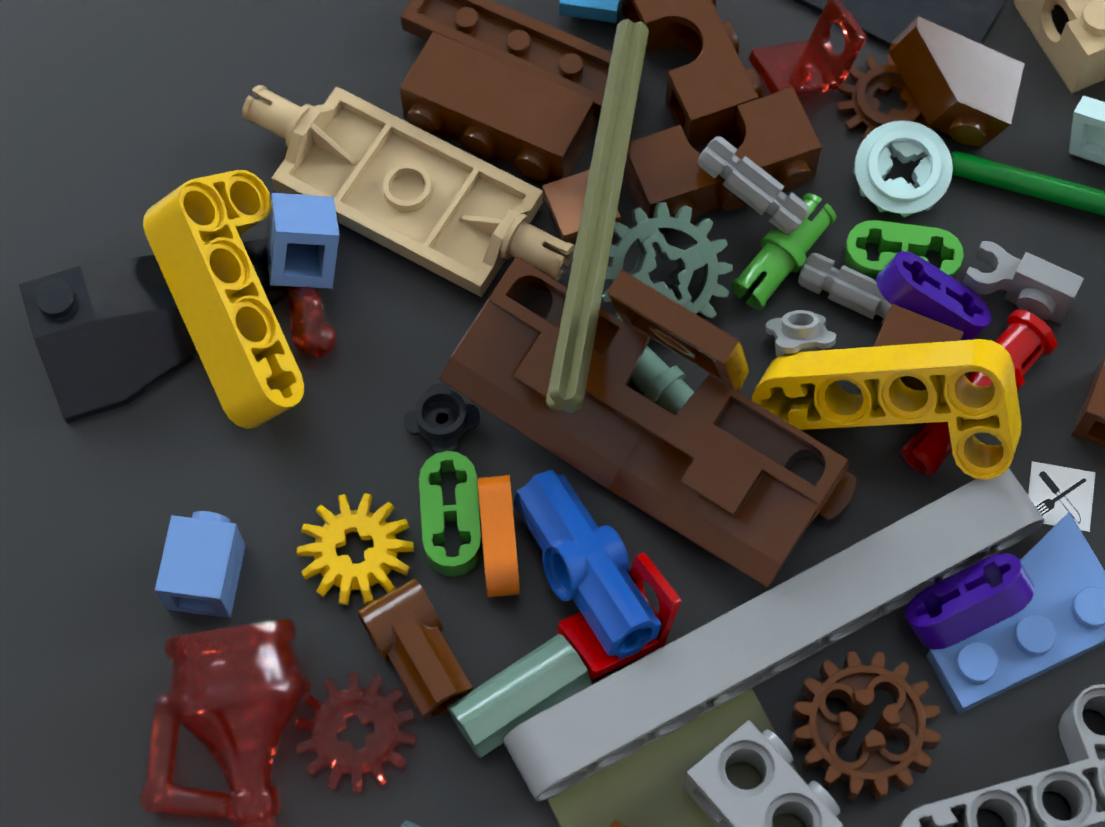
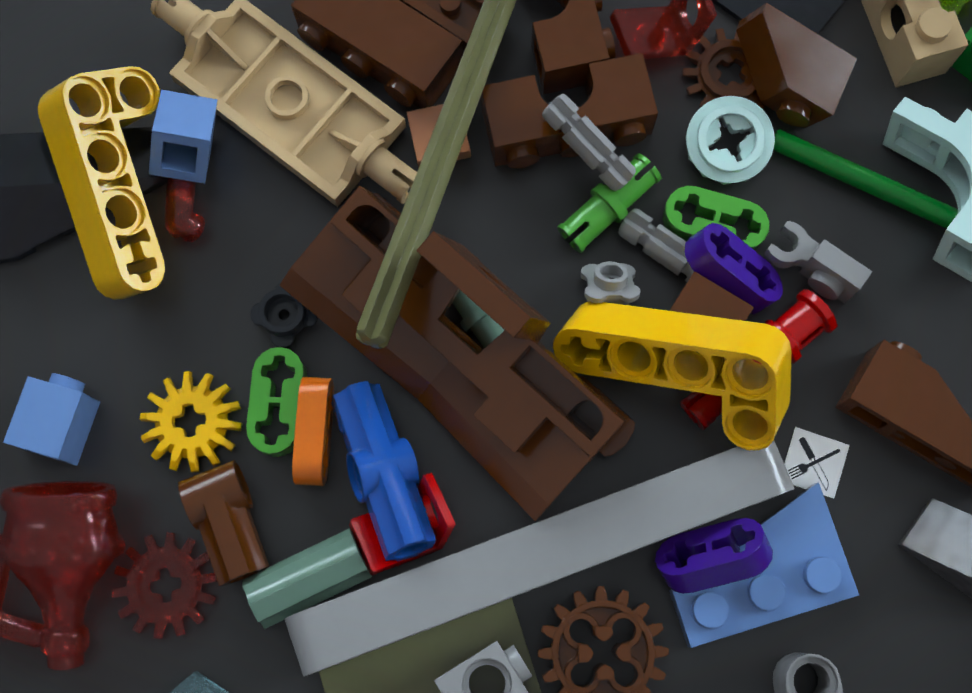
camera: 10 degrees right, 10 degrees up
(688, 258) = (523, 201): sand green gear -> none

